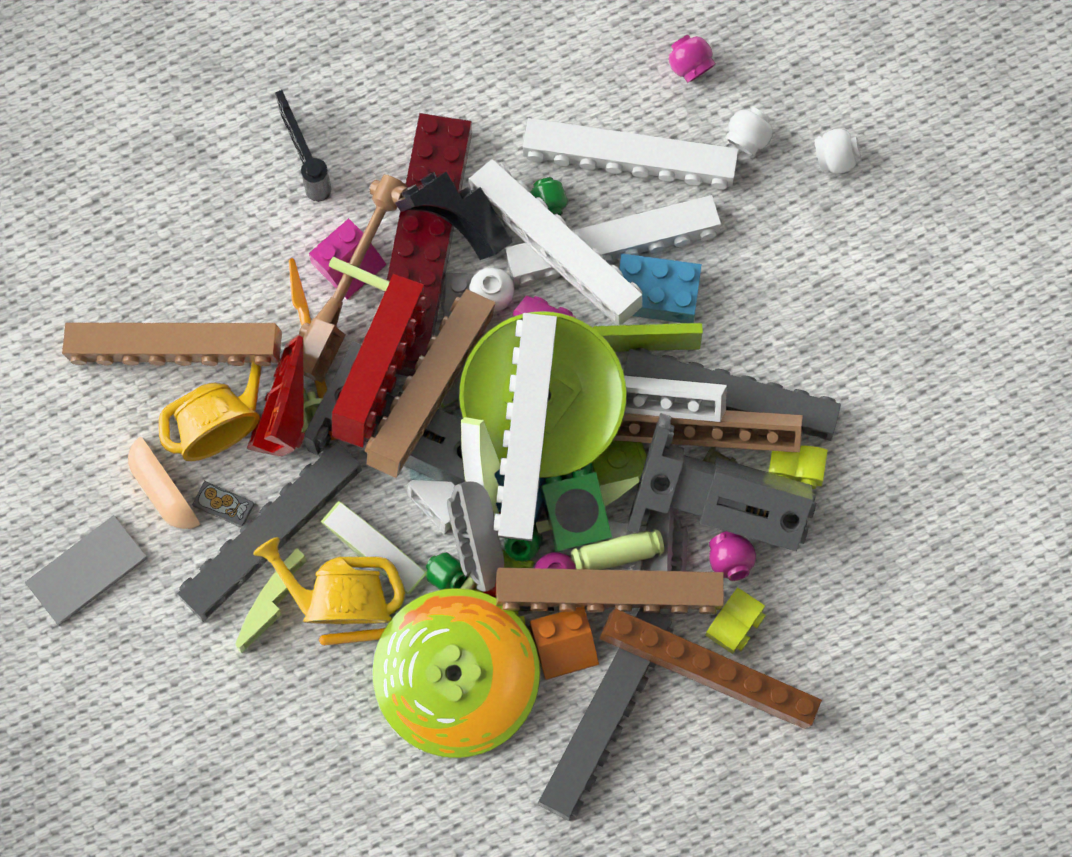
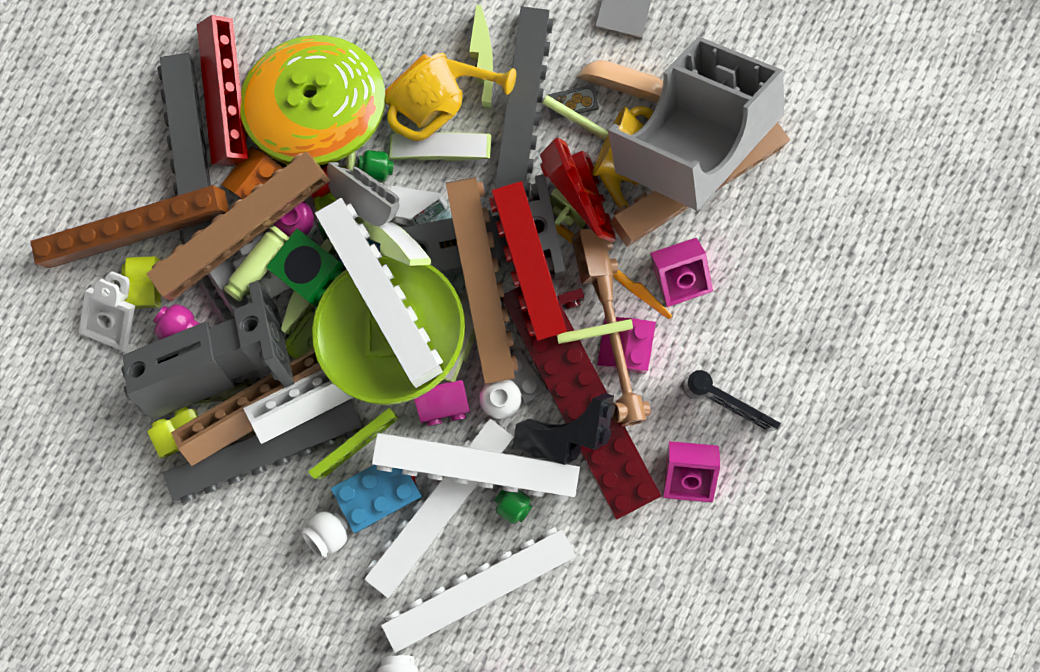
camera: 145 degrees right, 10 degrees up
(136, 373) = (704, 125): none -> light grey piece
(232, 485) = (575, 117): none -> yellowish green bar
(250, 286) = (682, 271): none -> dark pink slope
(359, 329) = (571, 299): none -> dark red plate
(376, 121) = (691, 471): none -> dark pink slope
(533, 744) = (221, 91): none -> red brick
(727, 285) = (325, 533): none -> white piece
(775, 611) = (108, 300): none -> white plate

